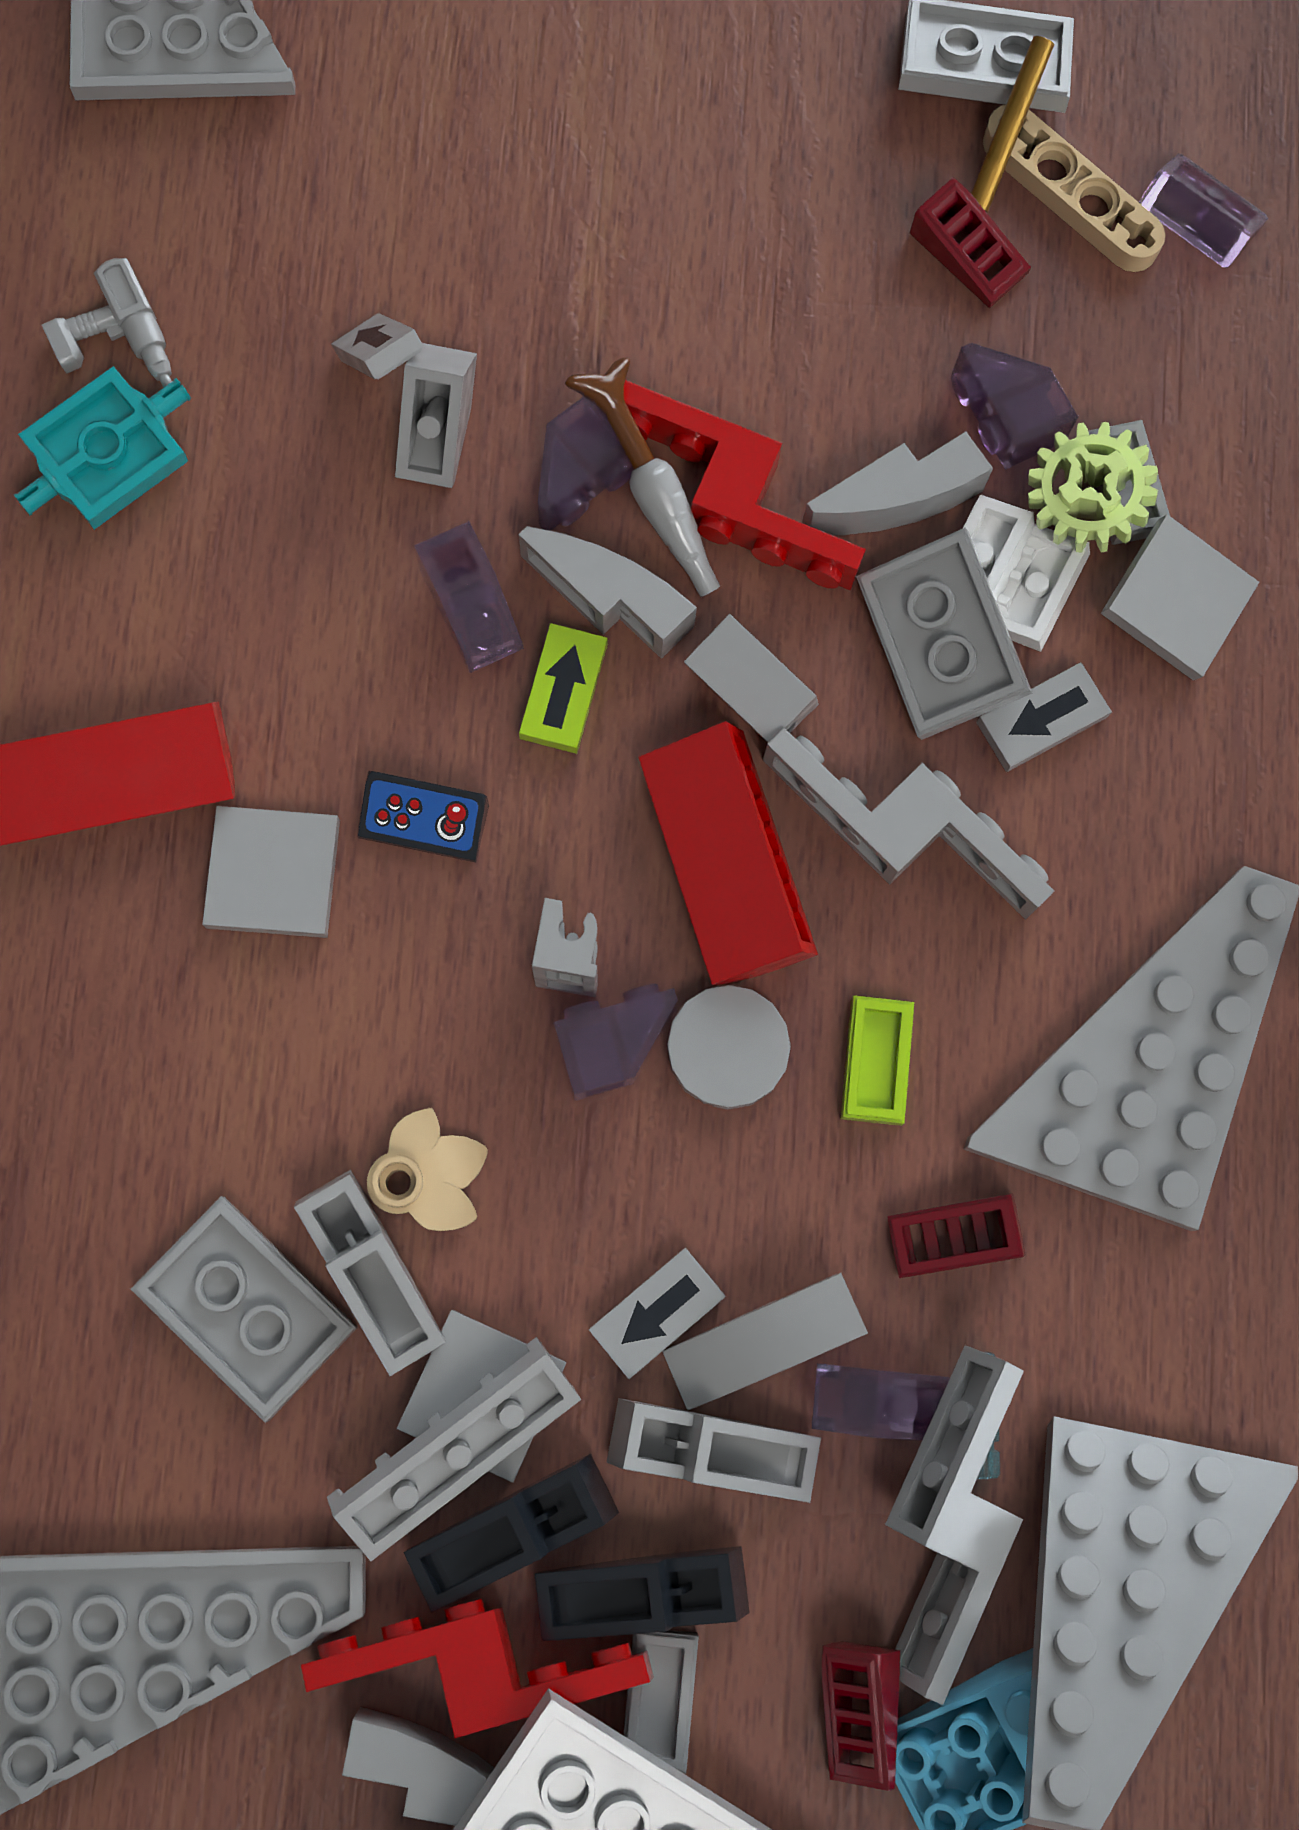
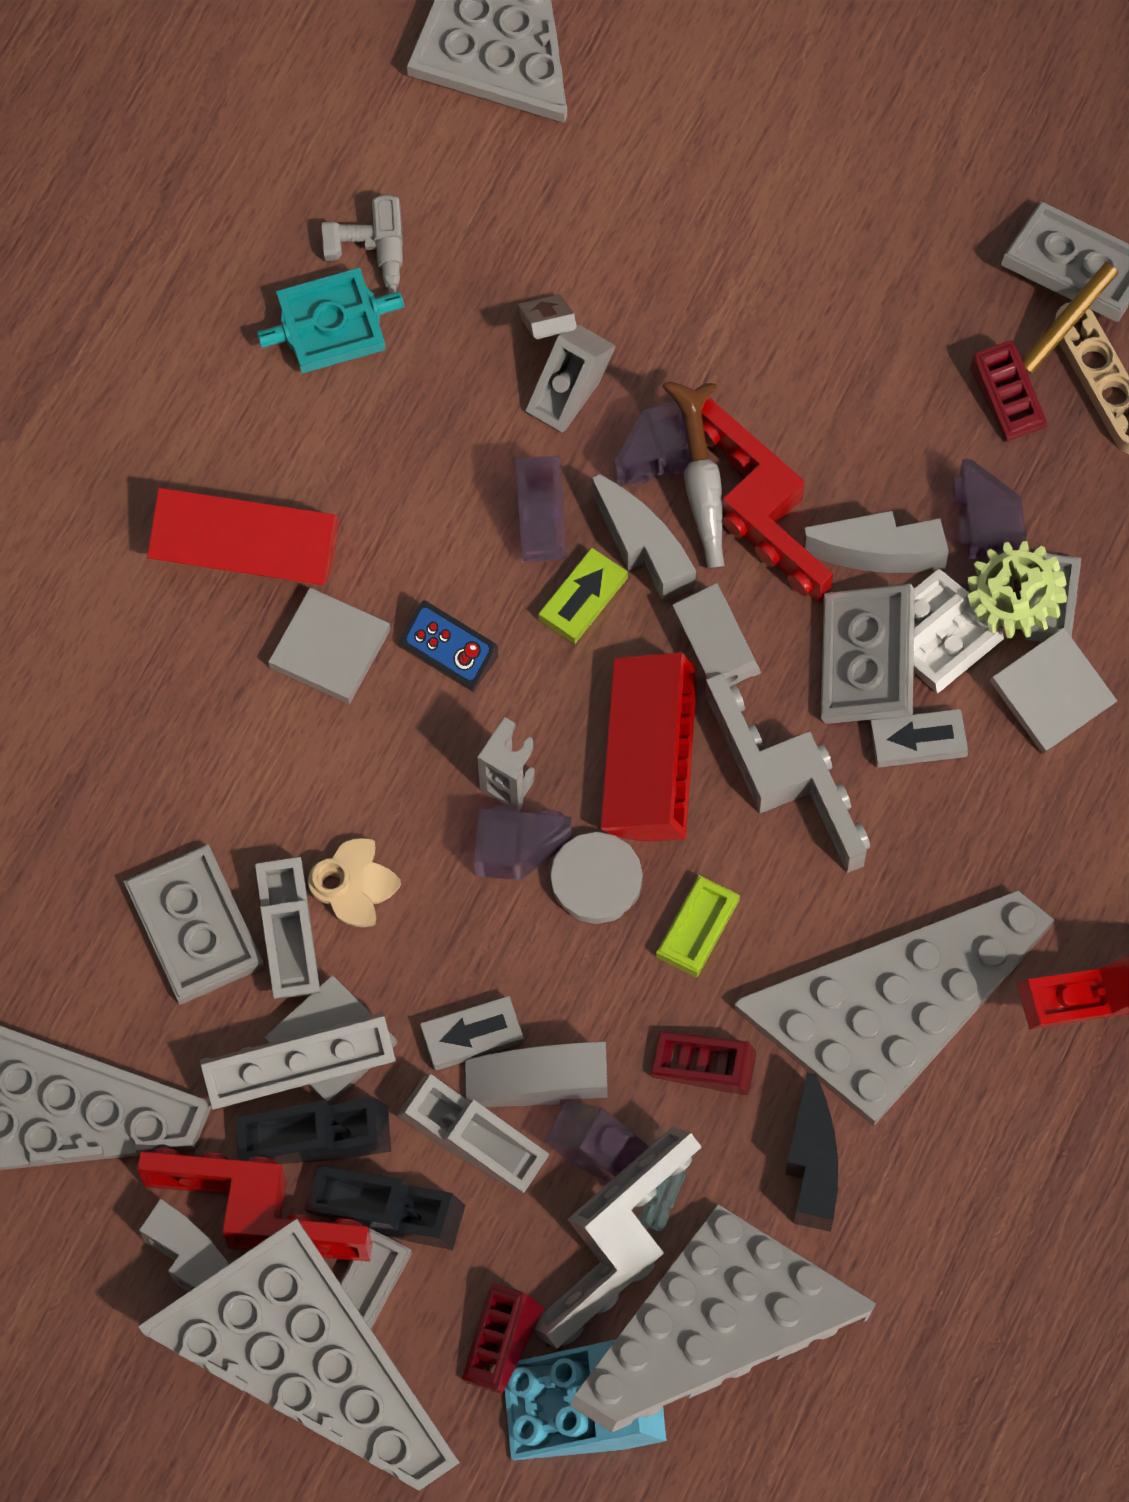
camera: 30 degrees right, 10 degrees down
(1147, 1305) = (814, 1158): none -> black slope

